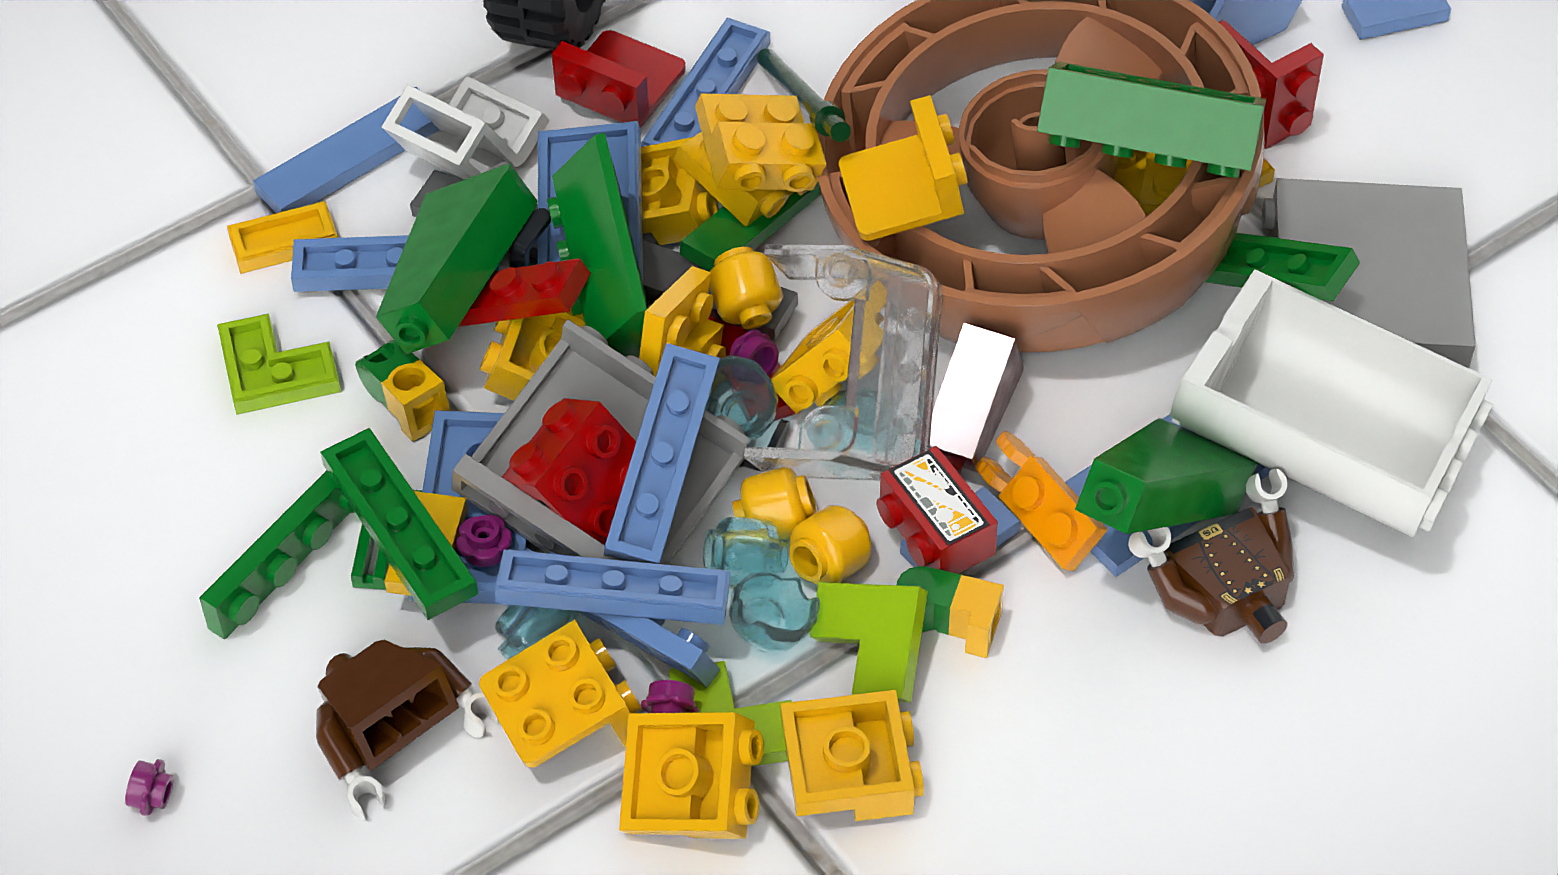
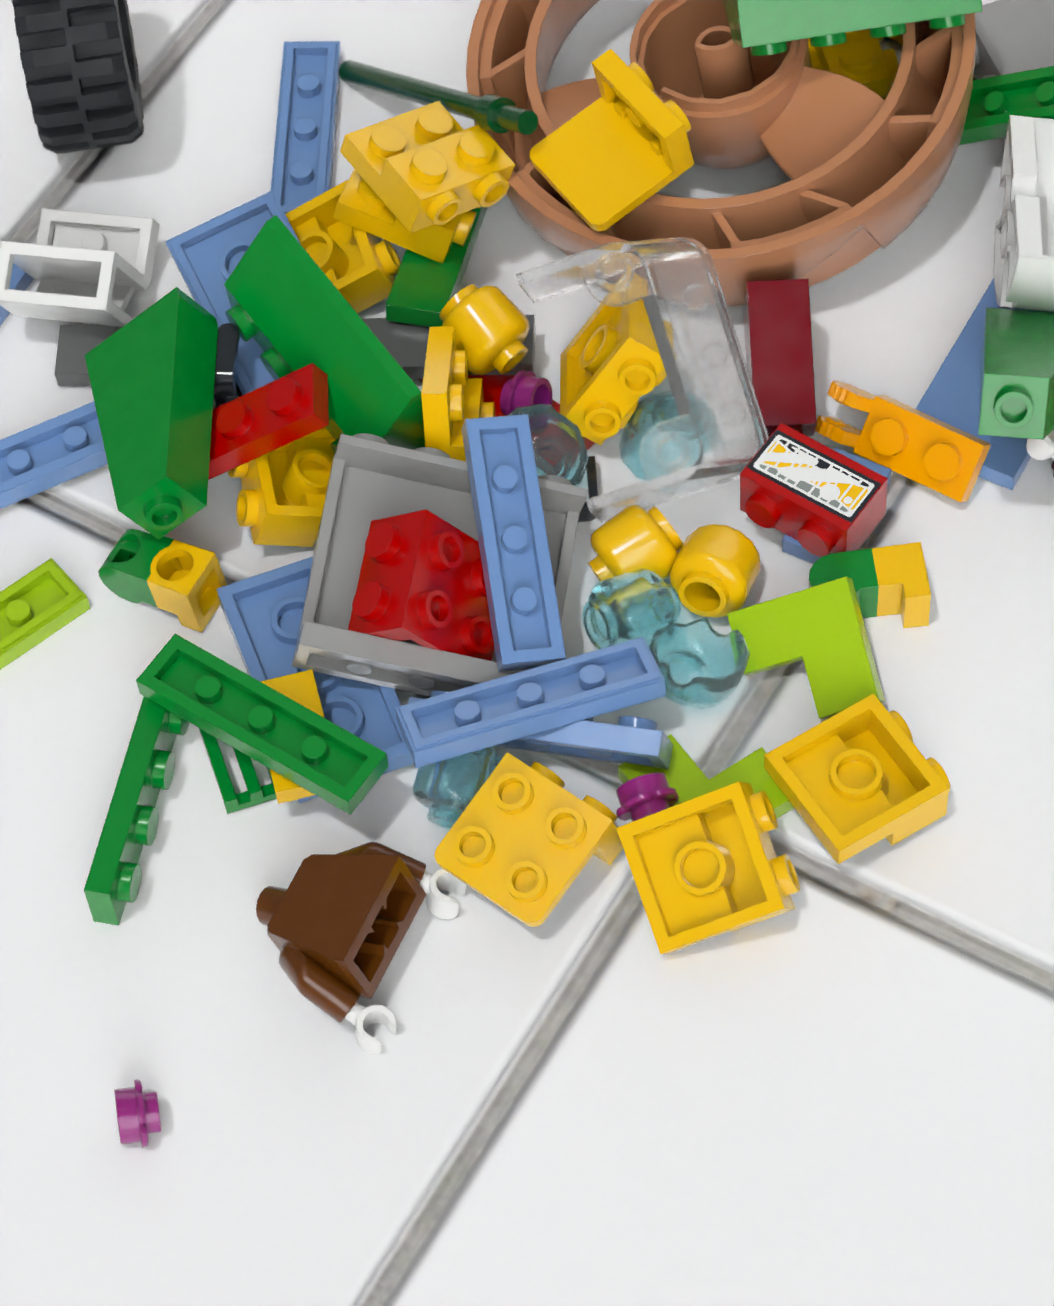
camera: 20 degrees left, 5 degrees up
(483, 551) = (360, 719): magenta plate -> none
(616, 76) = (203, 150): red bracket -> none

